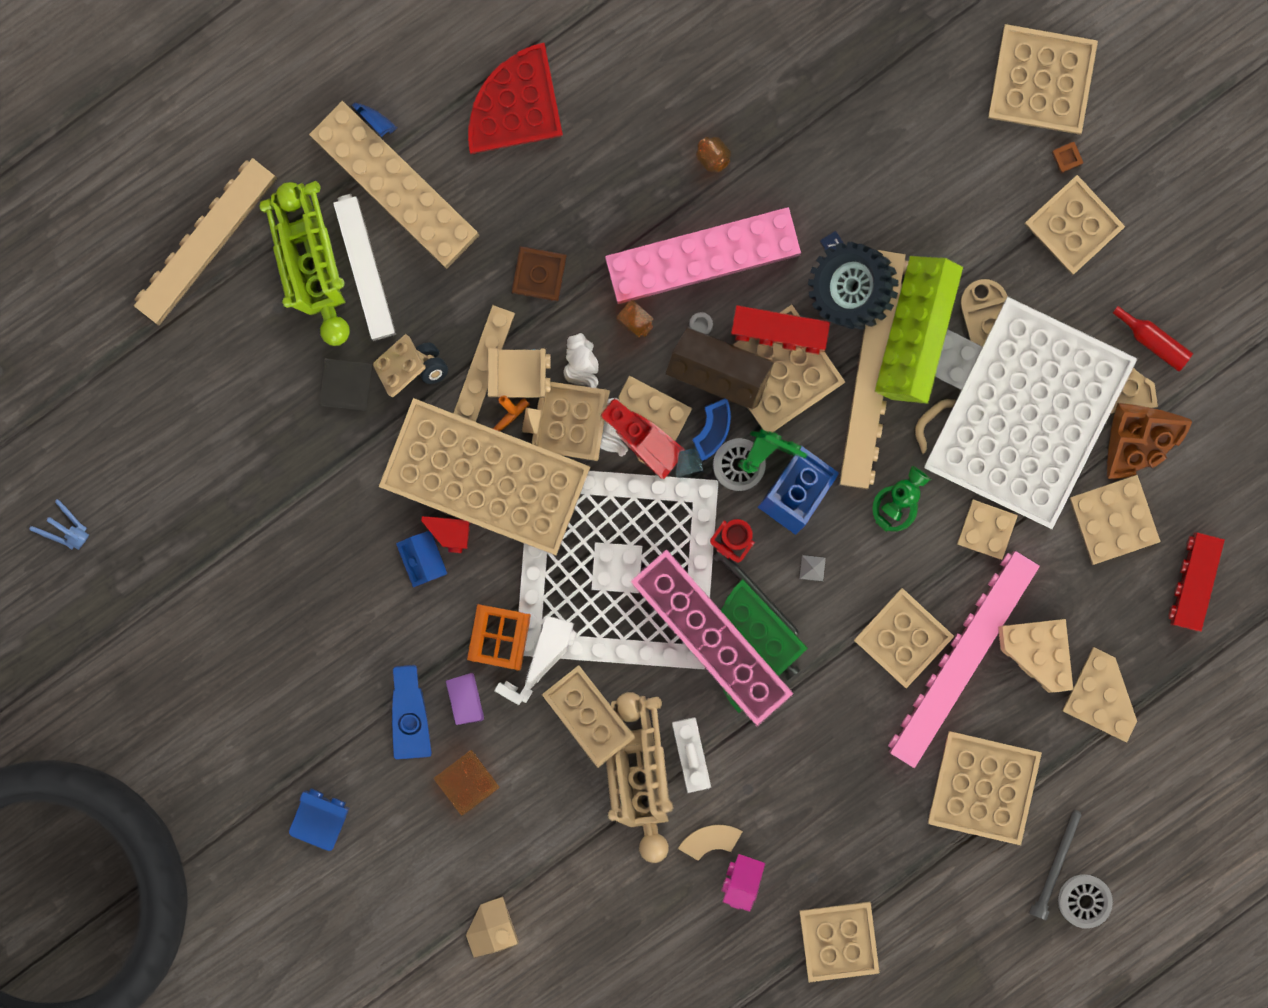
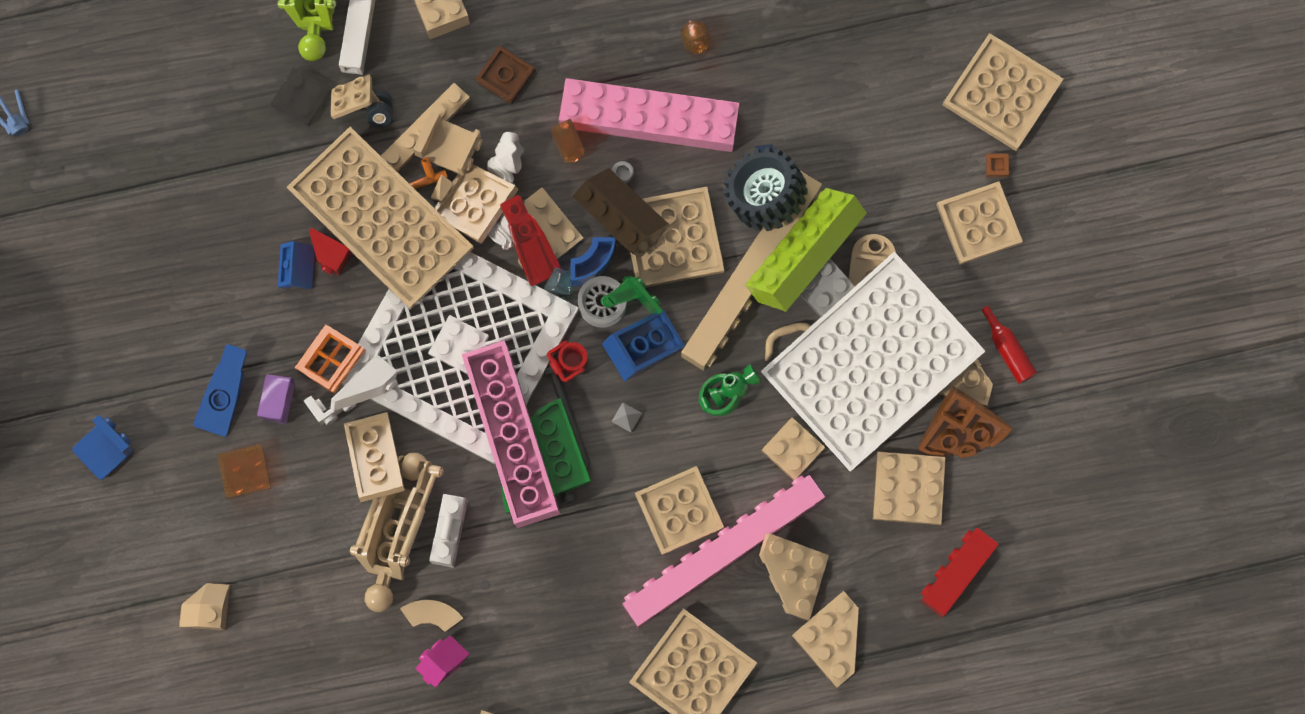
camera: 25 degrees right, 10 degrees down
(780, 329) = (687, 200): red brick -> none

